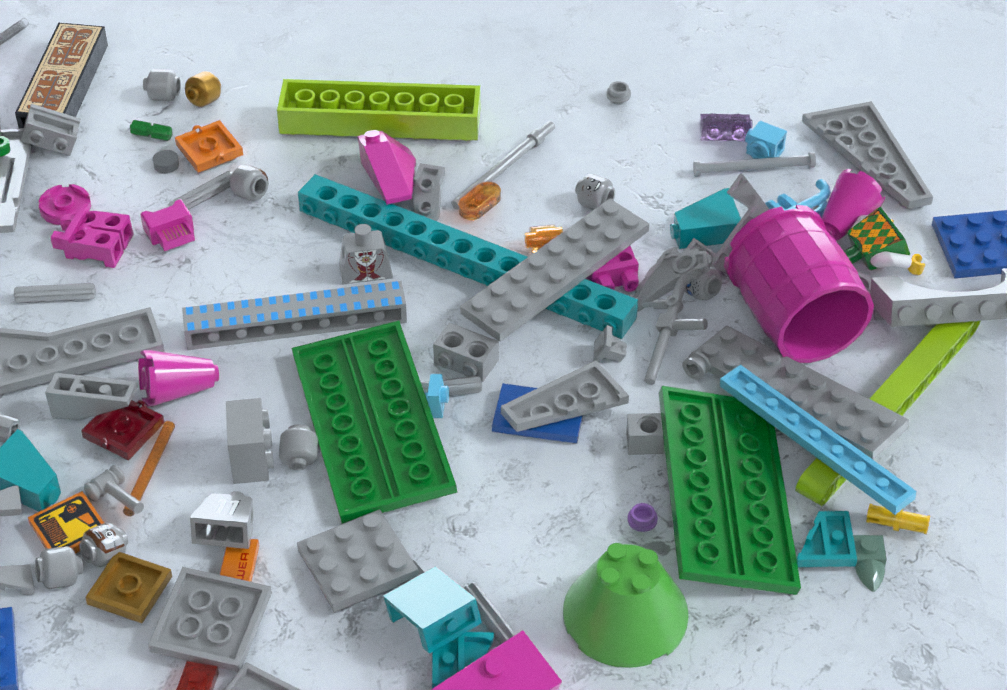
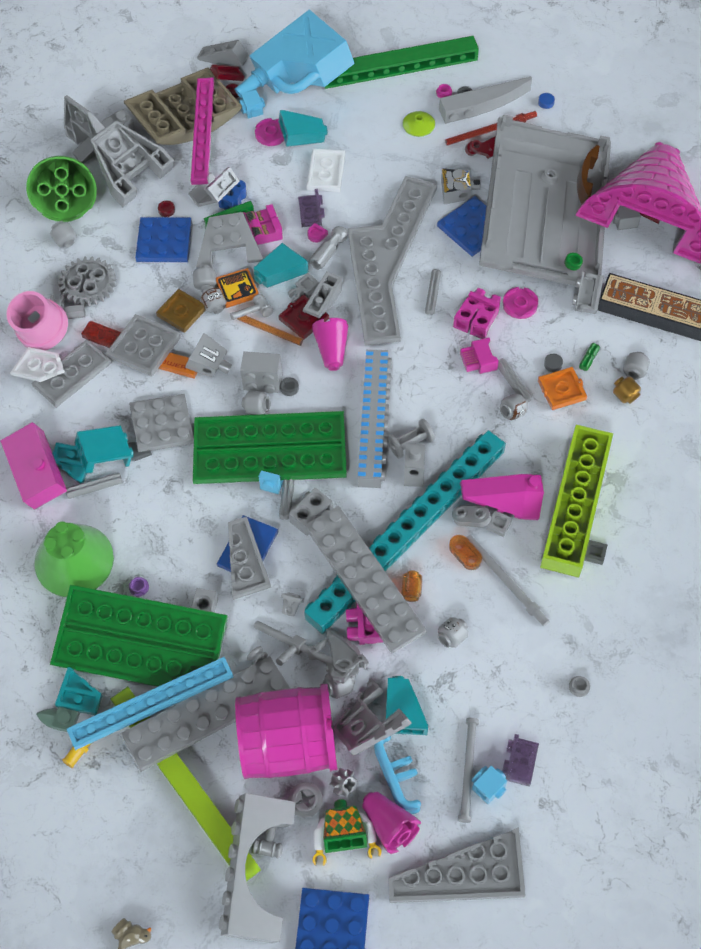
camera: 105 degrees right, 15 degrees up
(61, 434) = (305, 286): none -> light grey plate
(309, 258) = (399, 444): none -> light grey hose

